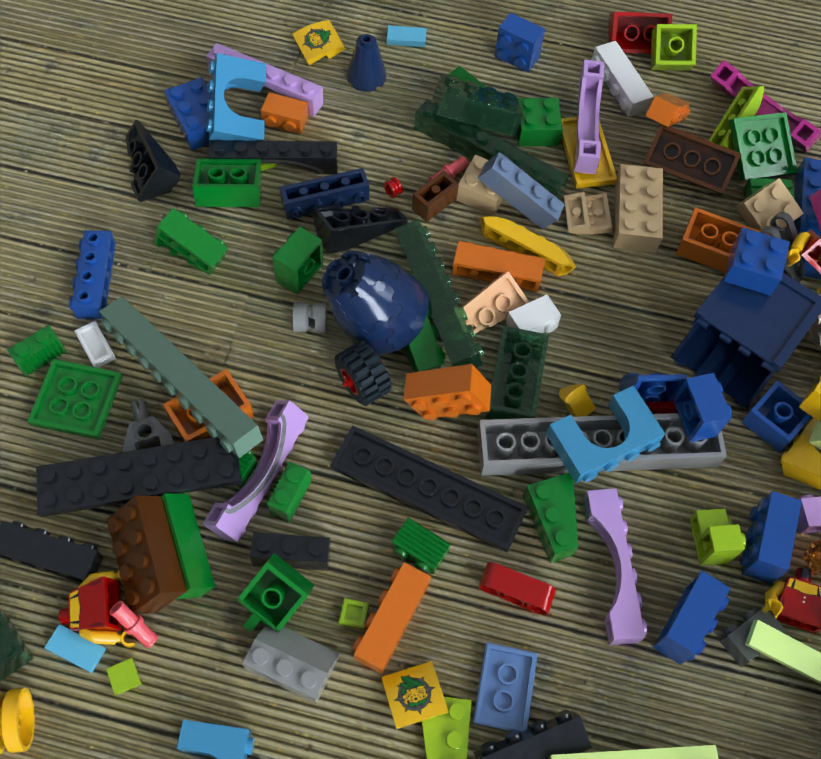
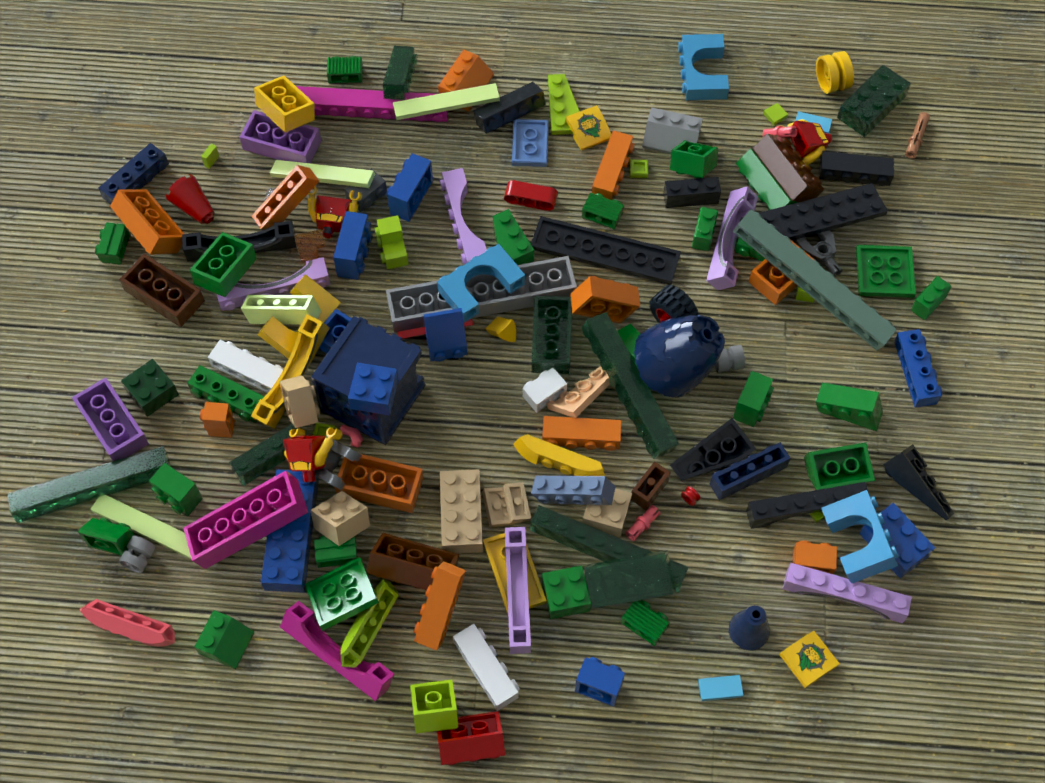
camera: 175 degrees right, 0 degrees up
(95, 344) = (890, 313): white tile -> none
(702, 407) = (408, 304): blue brick -> none

